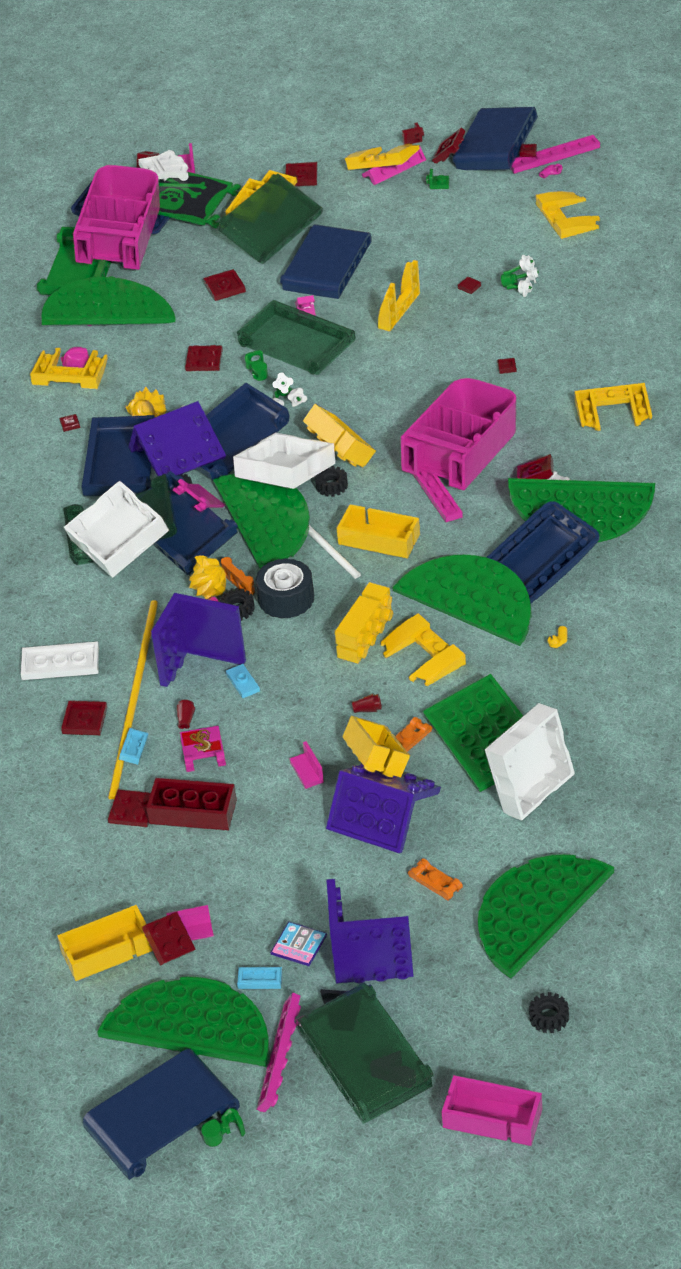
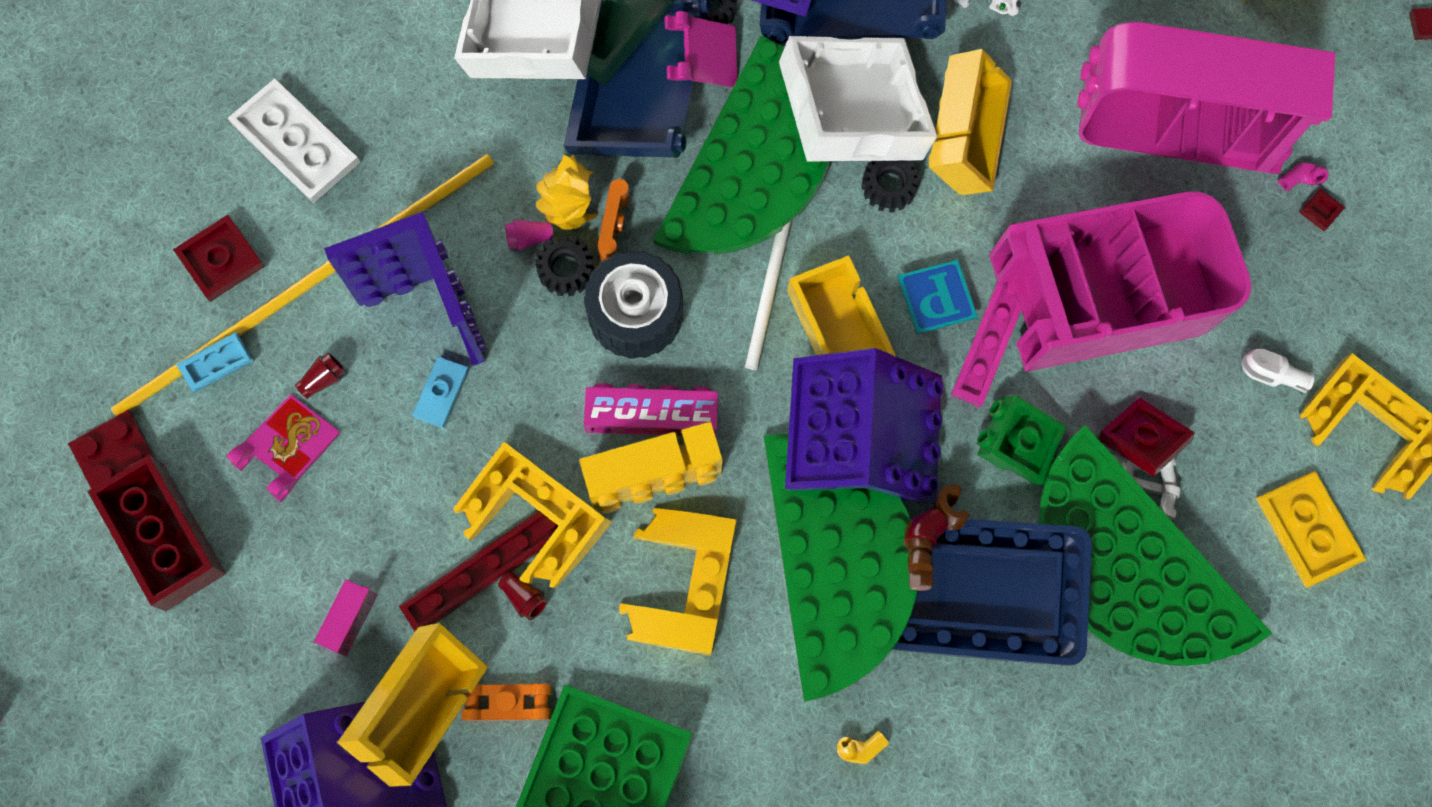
camera: 40 degrees right, 30 degrees up
(324, 623) = (647, 410): none -> dark pink brick
(340, 707) = (478, 572): none -> dark red tile
(354, 660) = (577, 521): none -> yellow wedge
(399, 497) = (937, 297): none -> piece
(416, 357) = (1202, 95): none -> dark pink piece
(421, 543) = (864, 425): none -> dark purple bracket
(486, 360) = (1304, 173): none -> dark pink arm
(490, 509) = (1020, 439): none -> green plate
(494, 549) = (924, 531): none -> reddish brown piece
(555, 419) = (1275, 370): none -> white arm
(630, 453) = (1310, 529): none -> yellow tile

